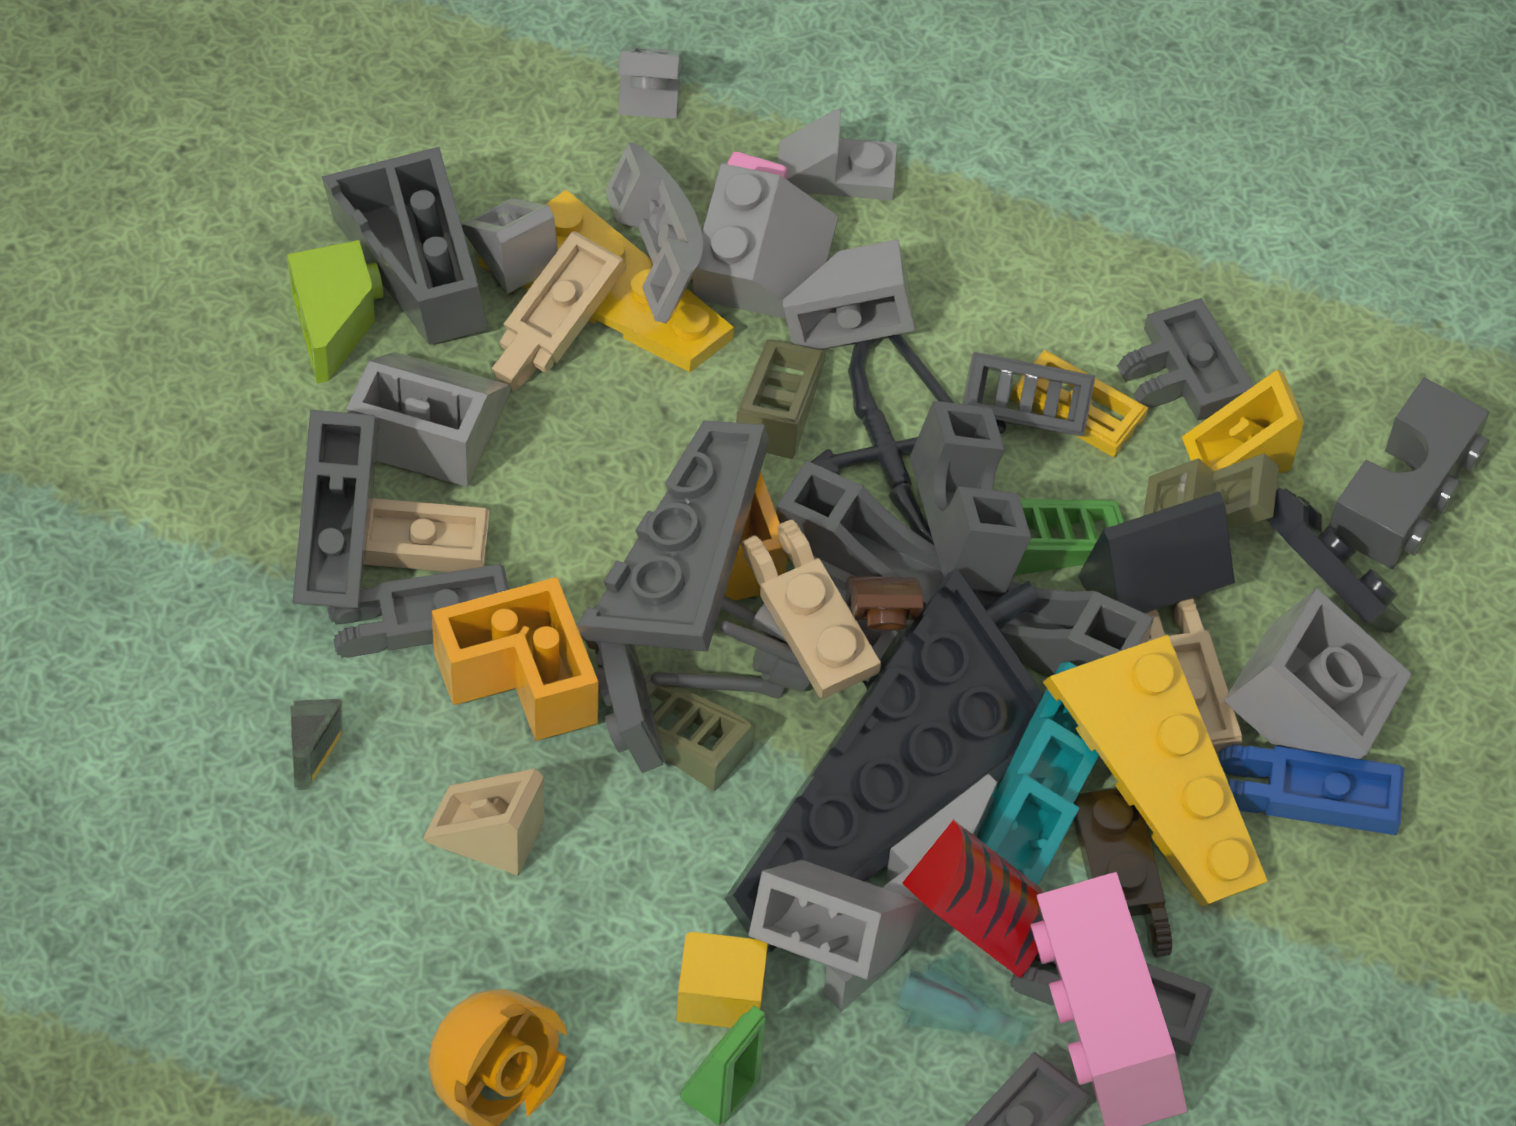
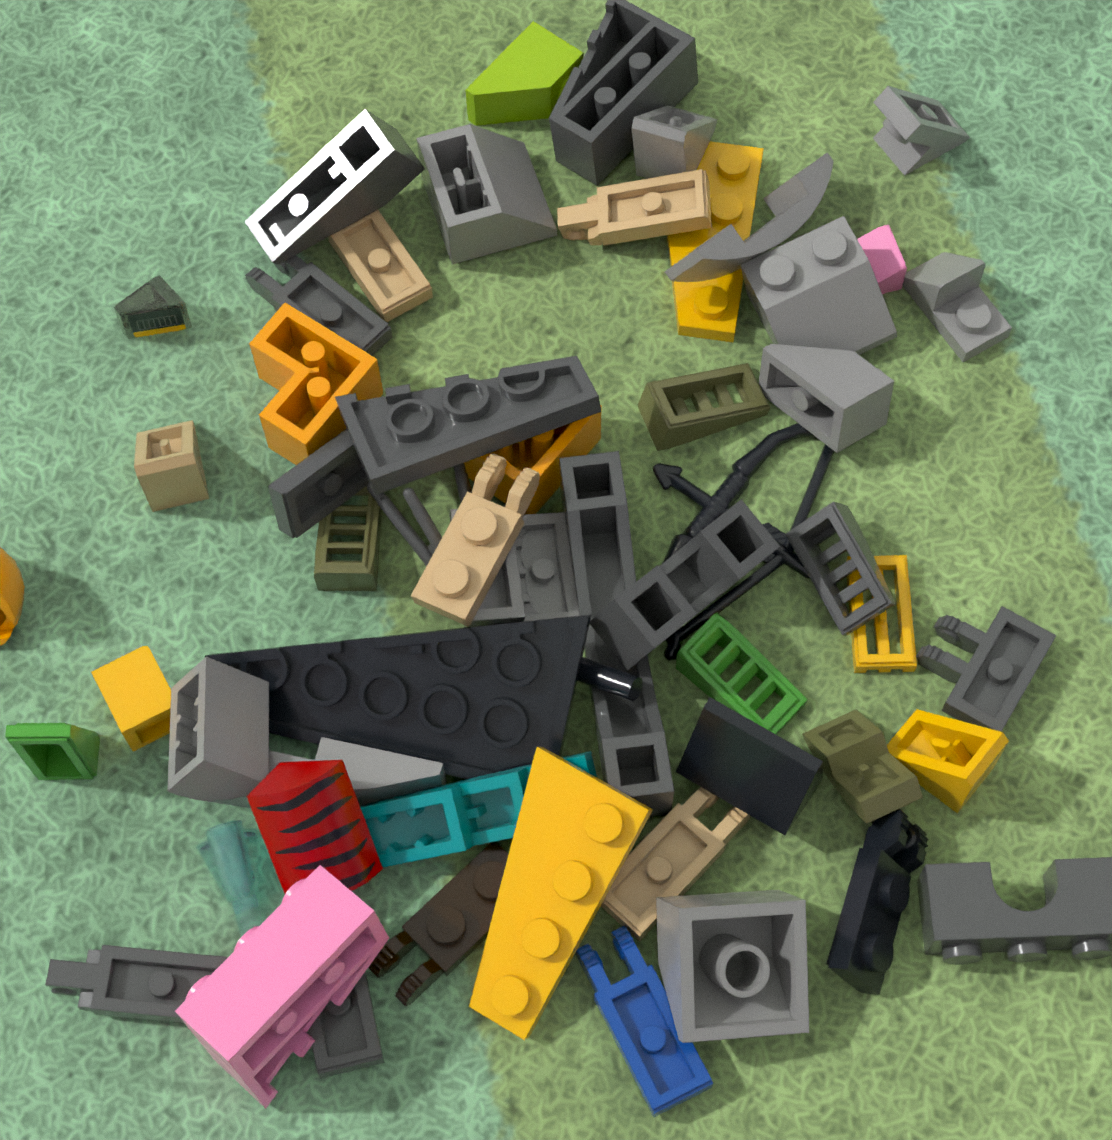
camera: 60 degrees right, 10 degrees up
(884, 600) = (527, 582): reddish brown slope -> none

